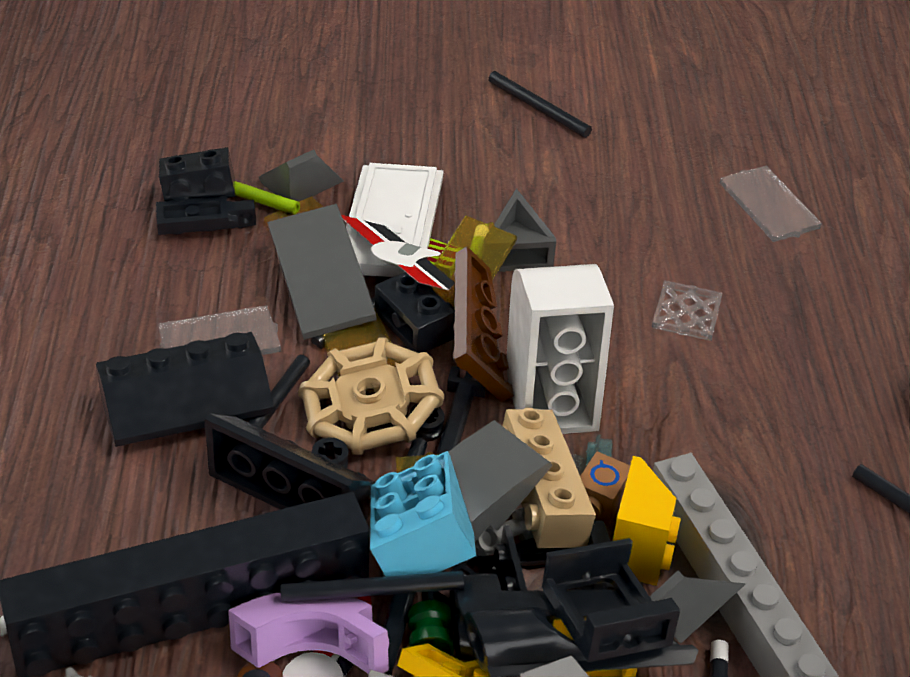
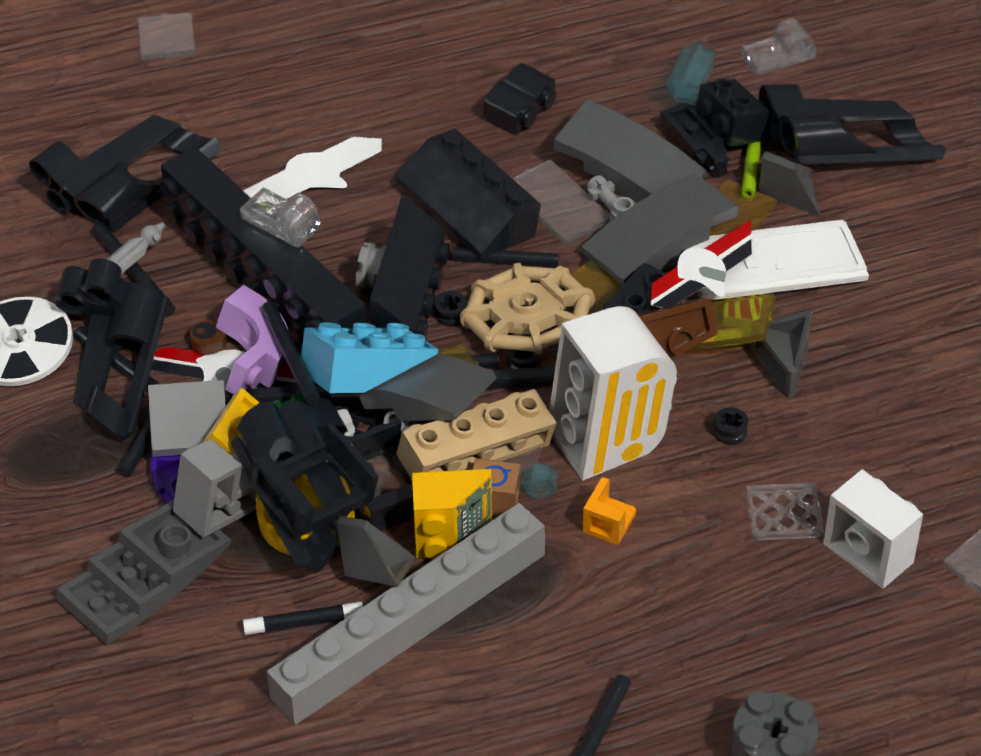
camera: 75 degrees right, 5 degrees up
(45, 511) = (319, 168): none -> white sticker
(62, 314) = (519, 98): none -> black brick
(125, 128) = (787, 47): none -> clear plate
(147, 196) = (690, 71): none -> clear light blue piece
(198, 515) = (287, 219): none -> clear plate
(202, 264) = (623, 152): none -> dark grey slope
(251, 491) = (370, 261): none -> light grey wheel
(259, 132) = (815, 134): none -> black panel
(274, 294) = (602, 191): none -> light grey bar
(660, 423) = (605, 516): none -> light orange panel
(753, 251) = (872, 528): none -> white brick

